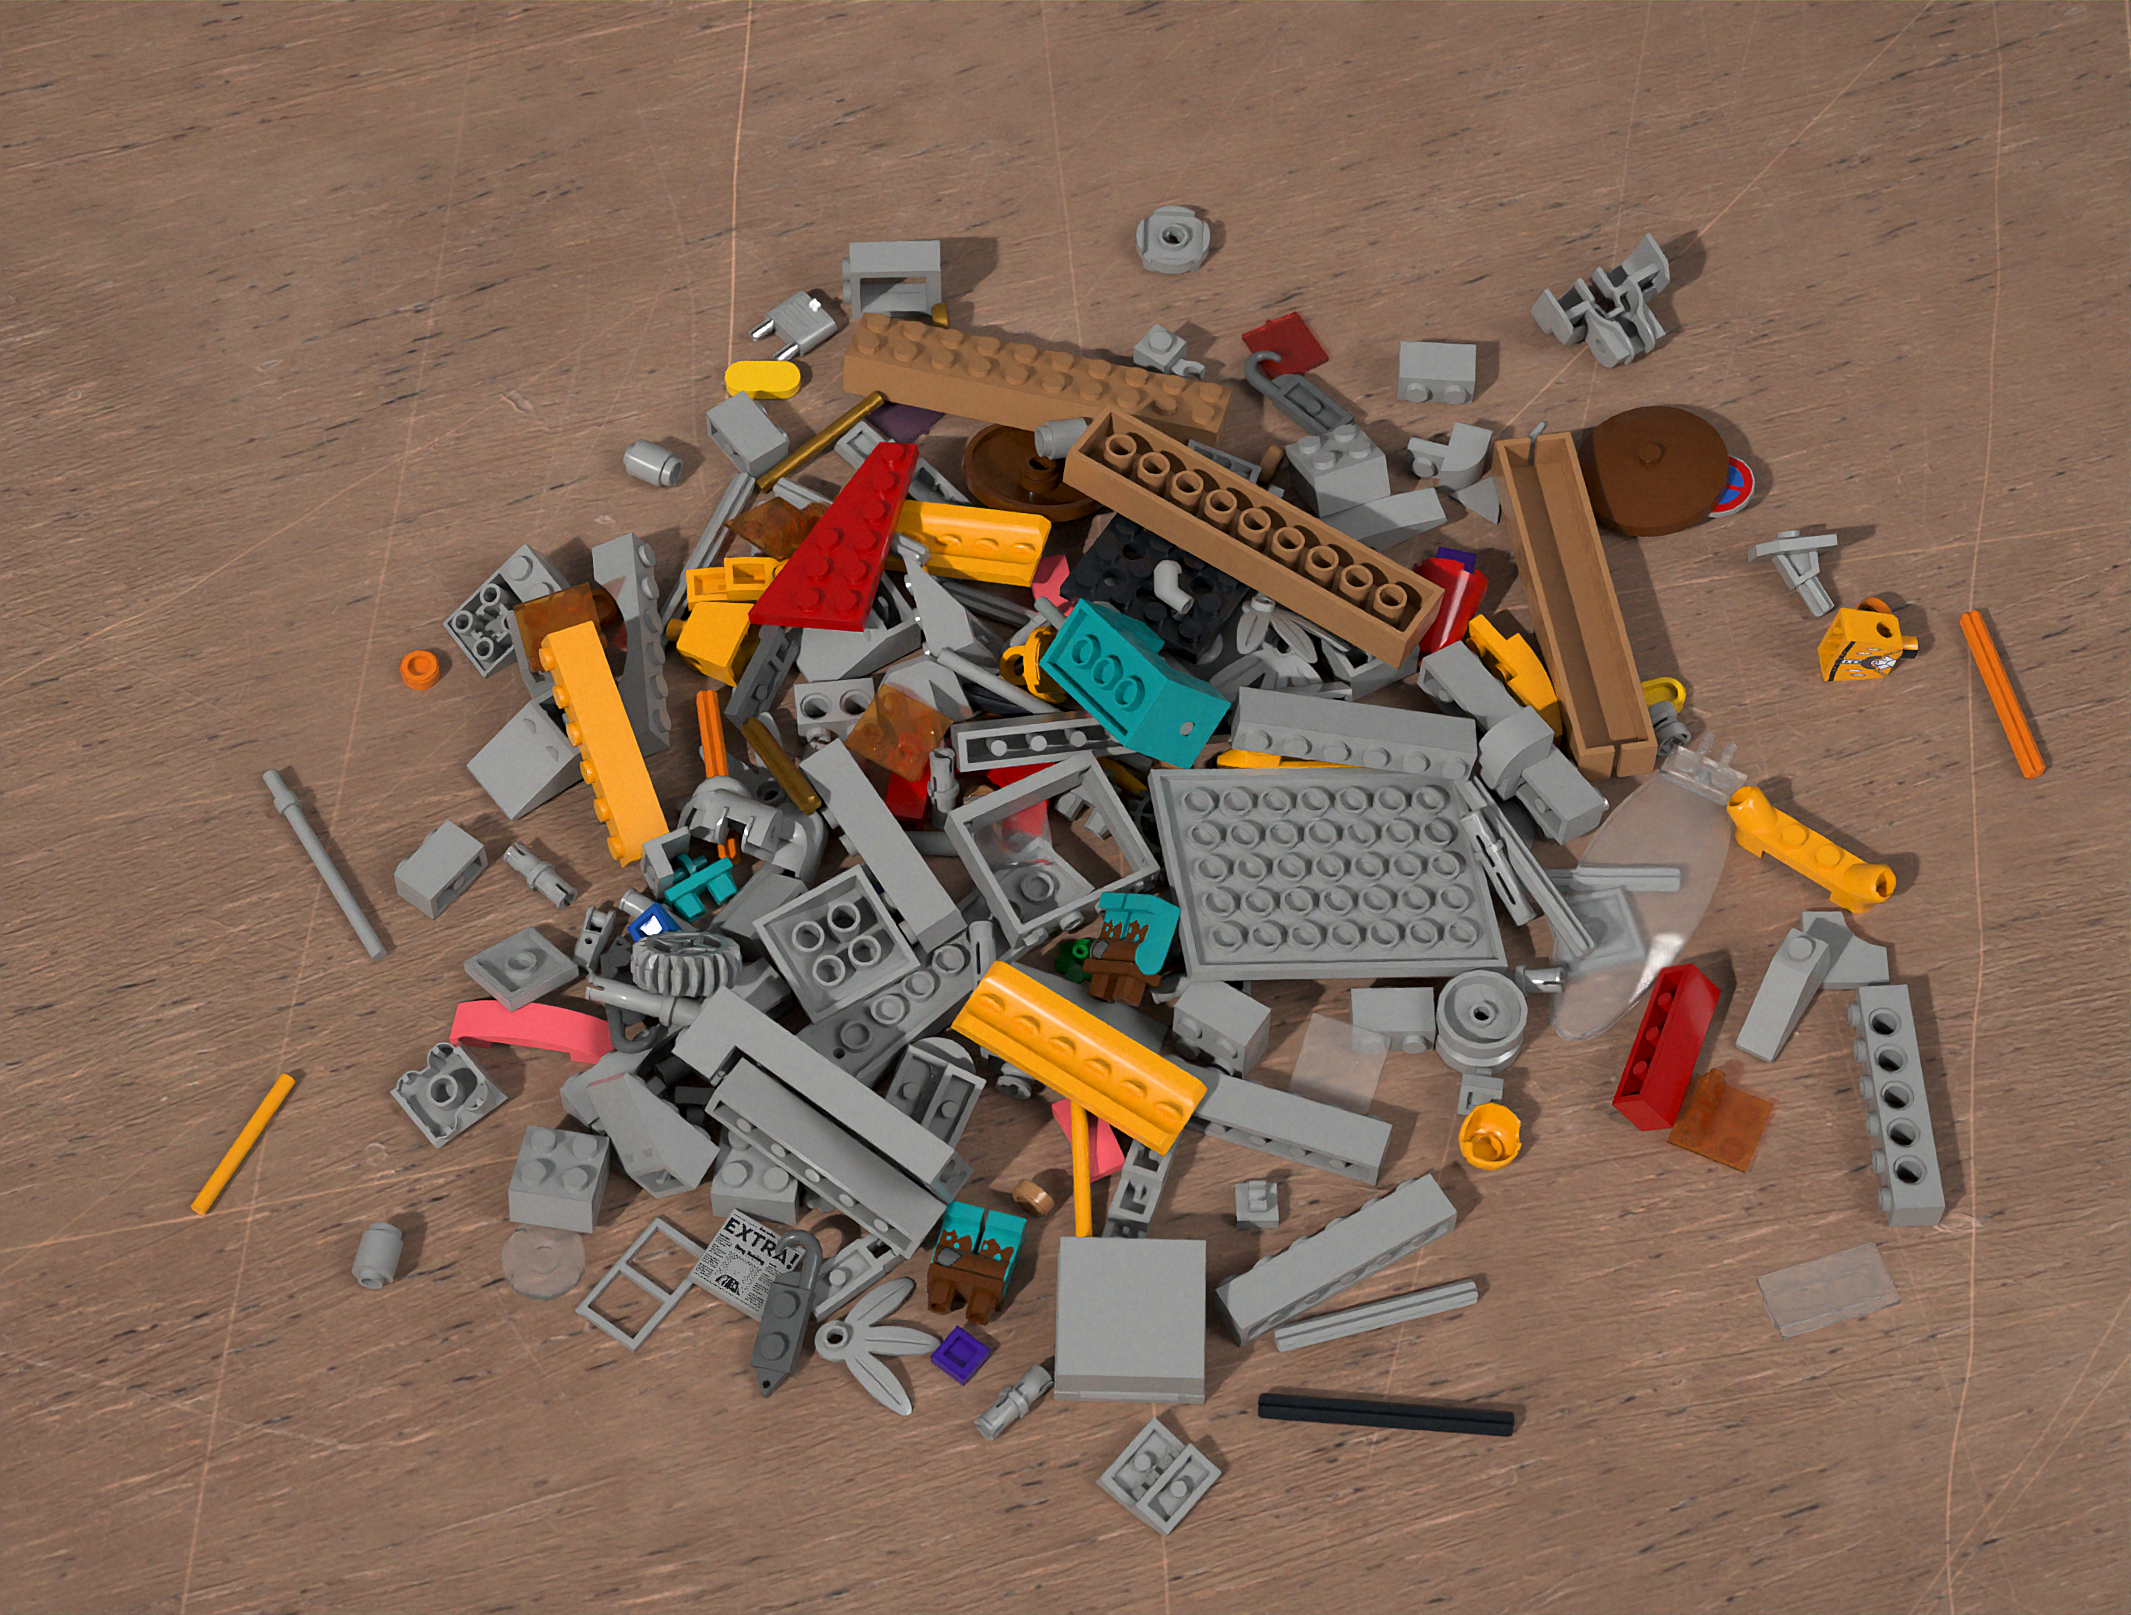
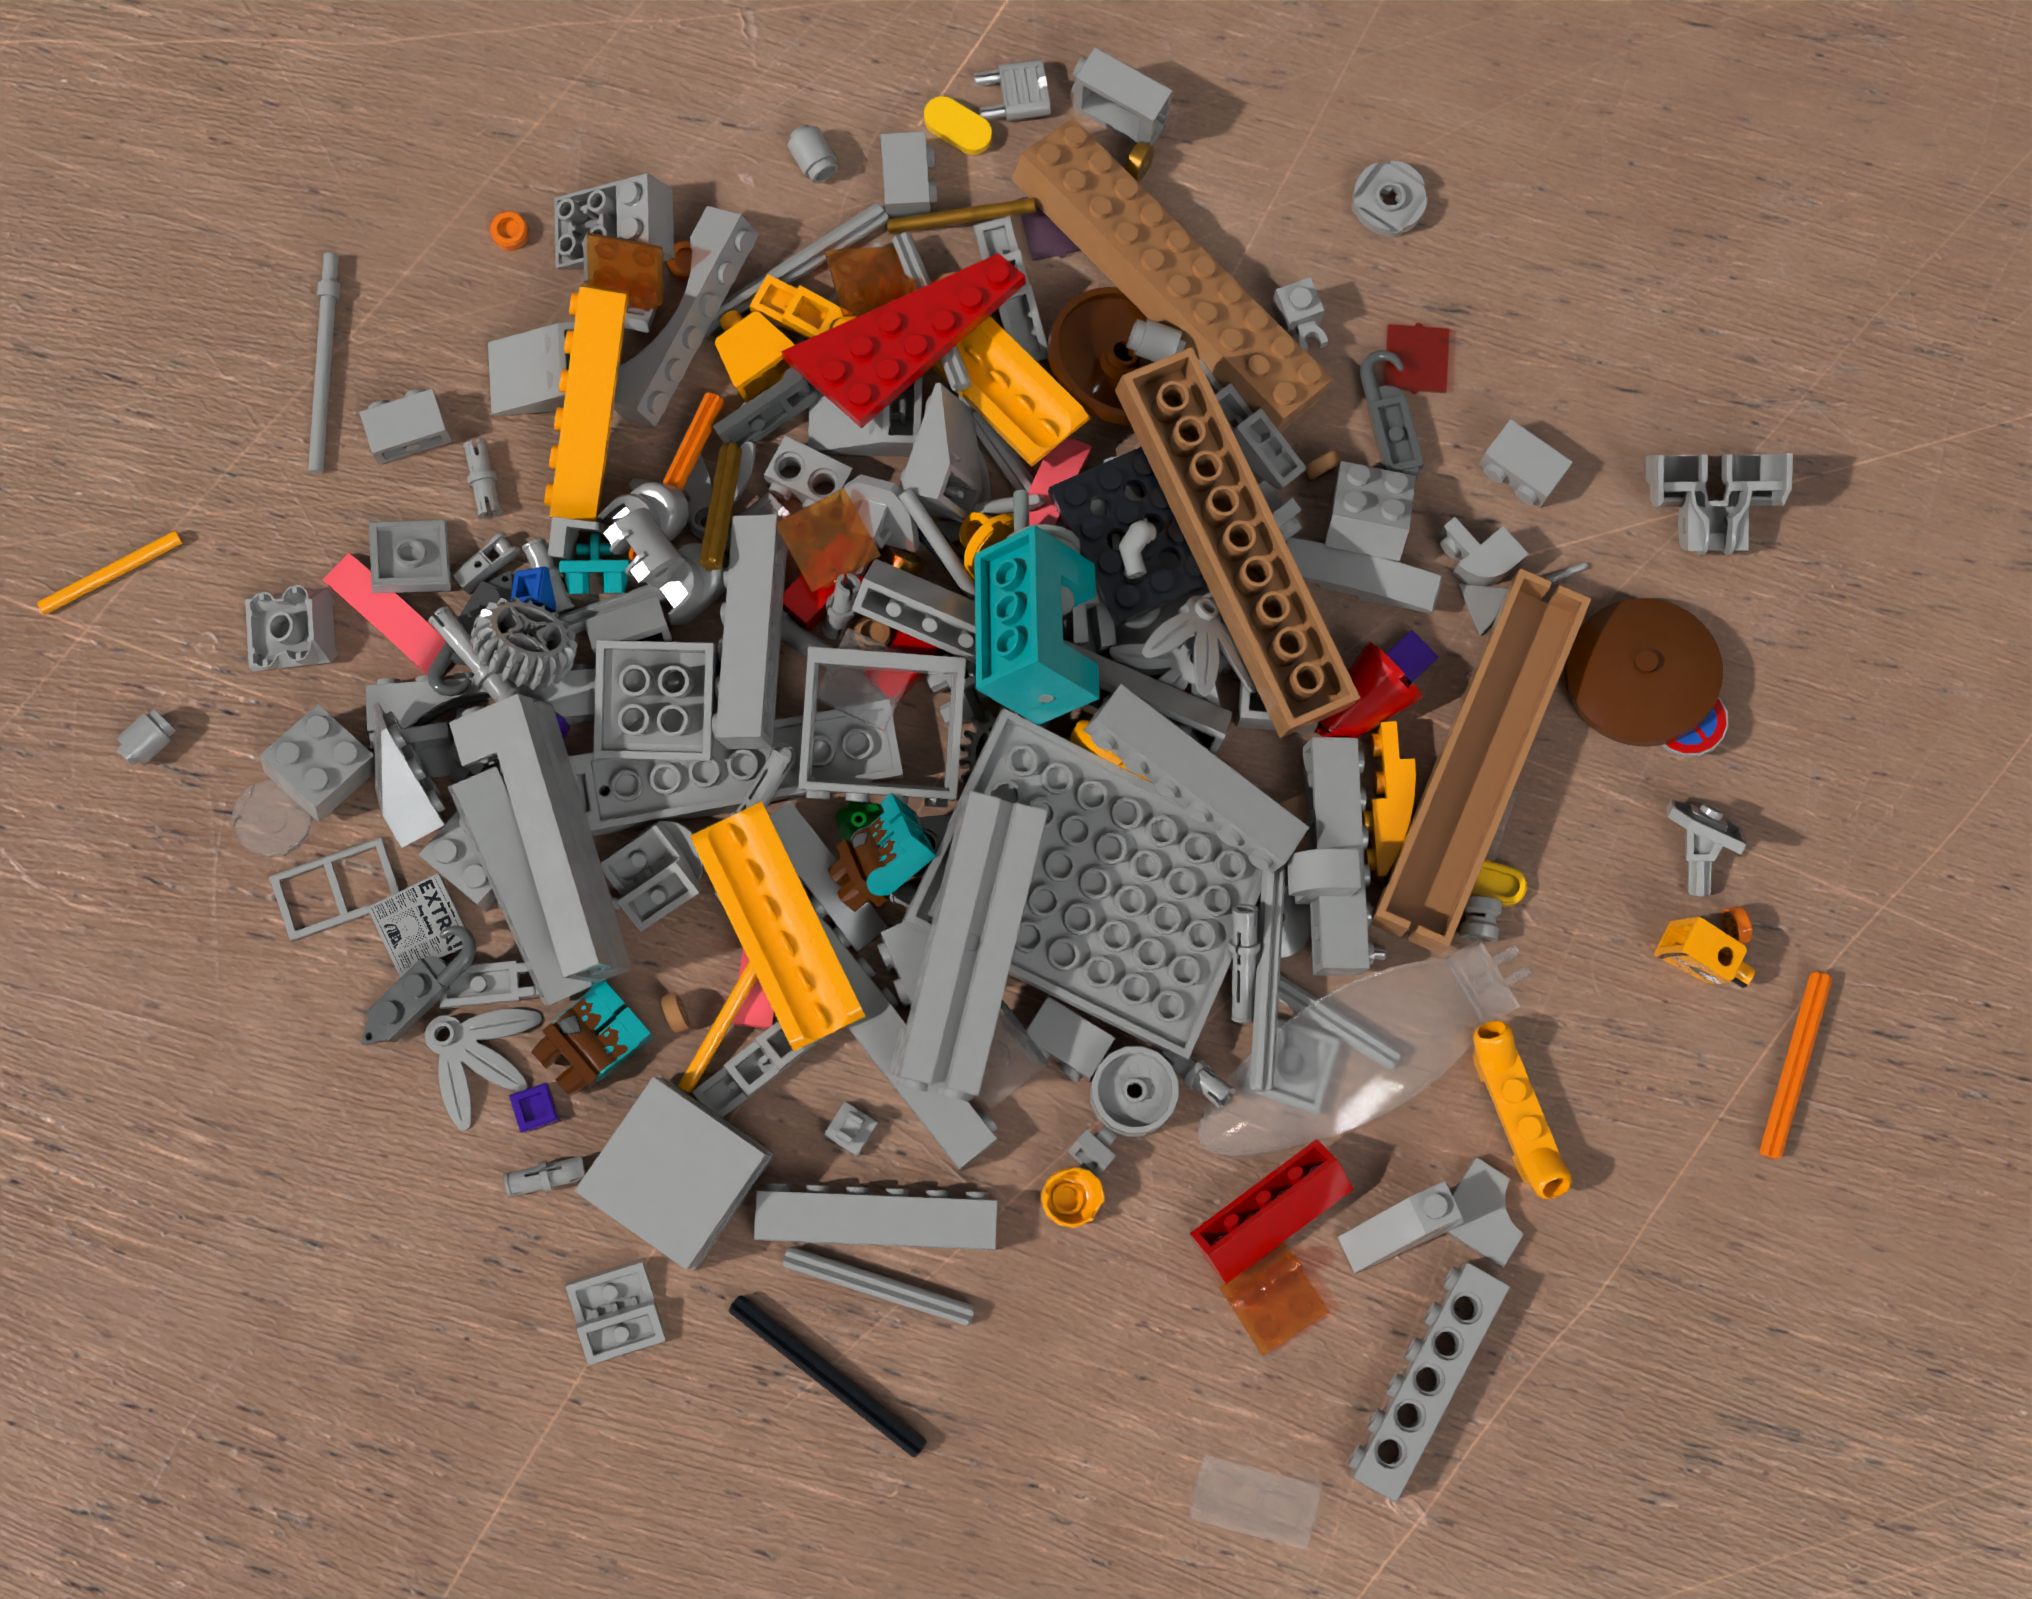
camera: 30 degrees right, 20 degrees up
(1266, 967) = (969, 947): none -> light grey brick

